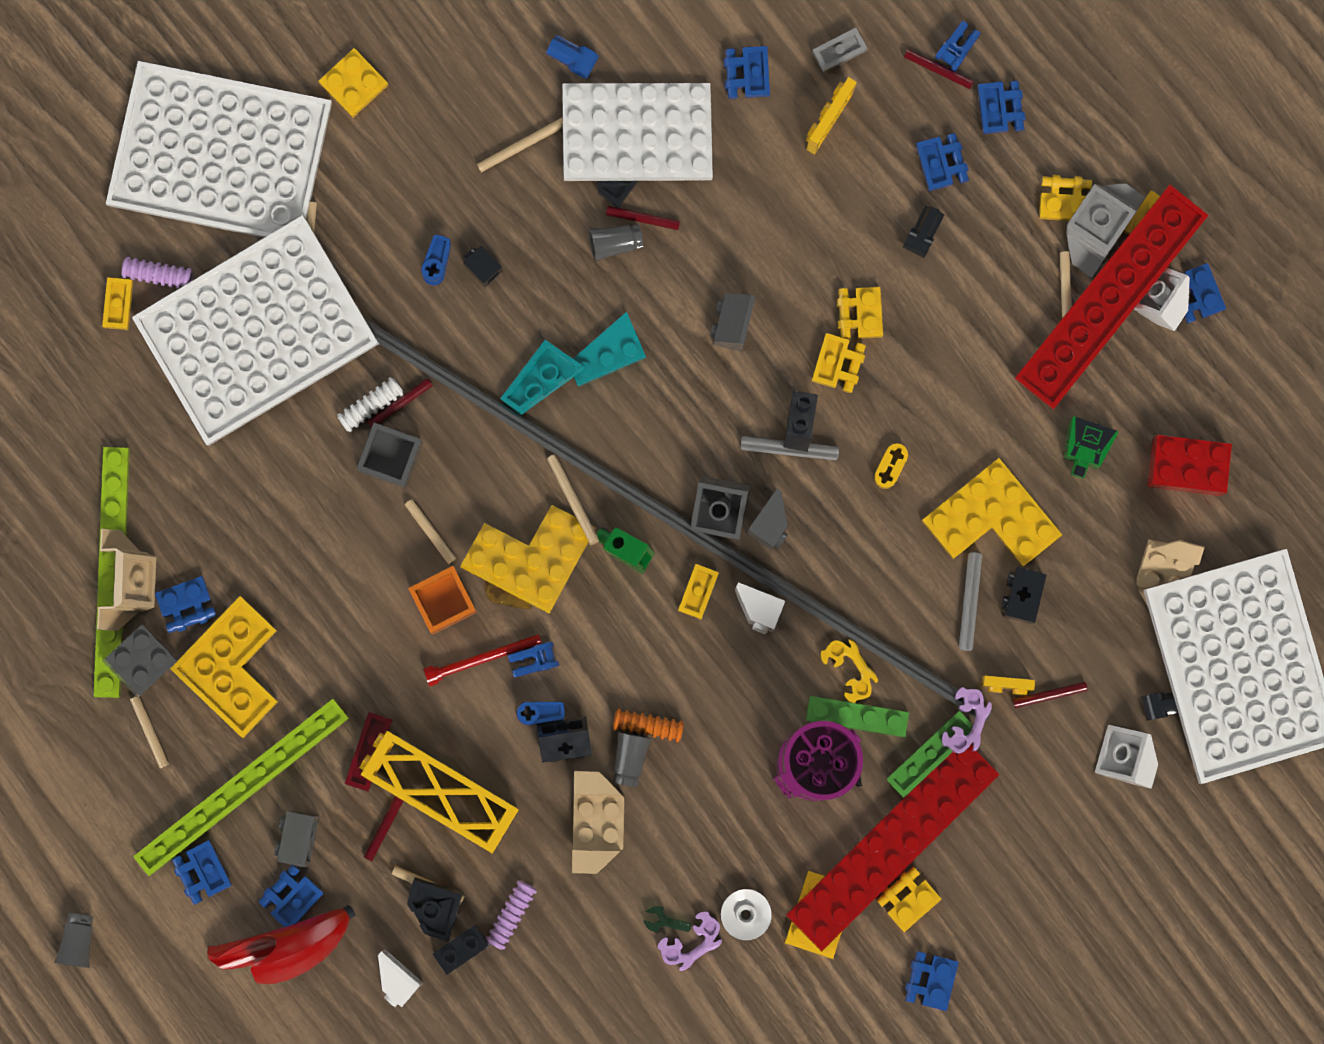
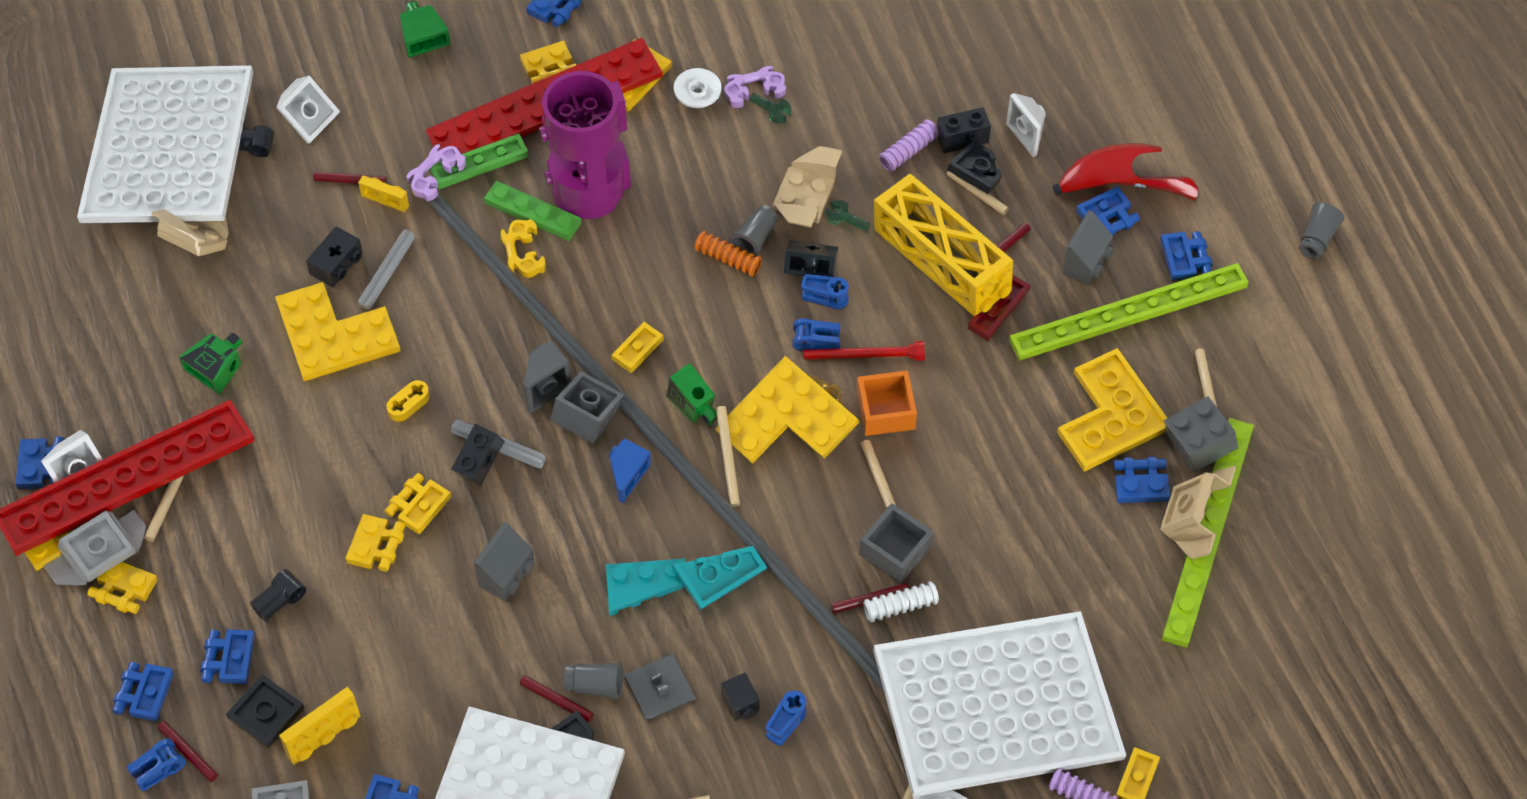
camera: 155 degrees left, 25 degrees down
(547, 811) = (844, 215): none -> clear green bar
(558, 259) = (659, 687): none -> dark grey piece
(662, 459) = (628, 466): none -> blue slope
(759, 608) = (582, 308): white slope -> none
(887, 122) = (265, 711): none -> black plate
(1053, 896) = (423, 29): none -> green torso
(1189, 465) = (127, 315): red brick -> none

